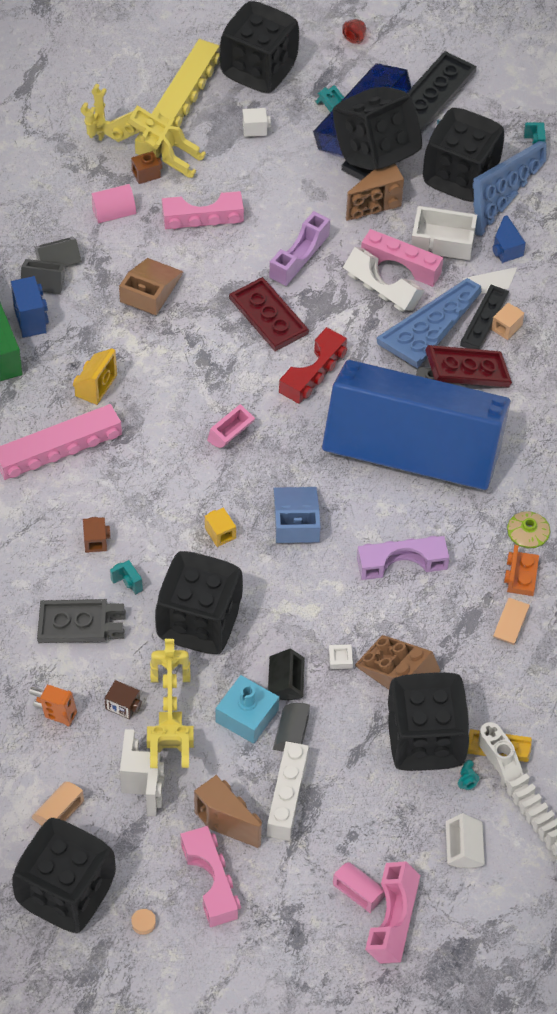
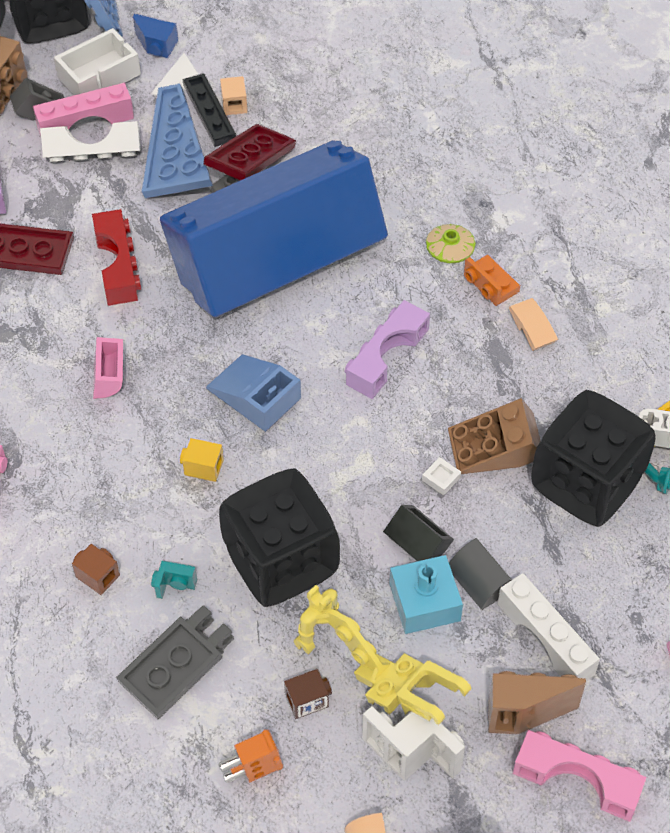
camera: 45 degrees left, 0 degrees up
(383, 222) = (30, 94): none -> dark grey slope

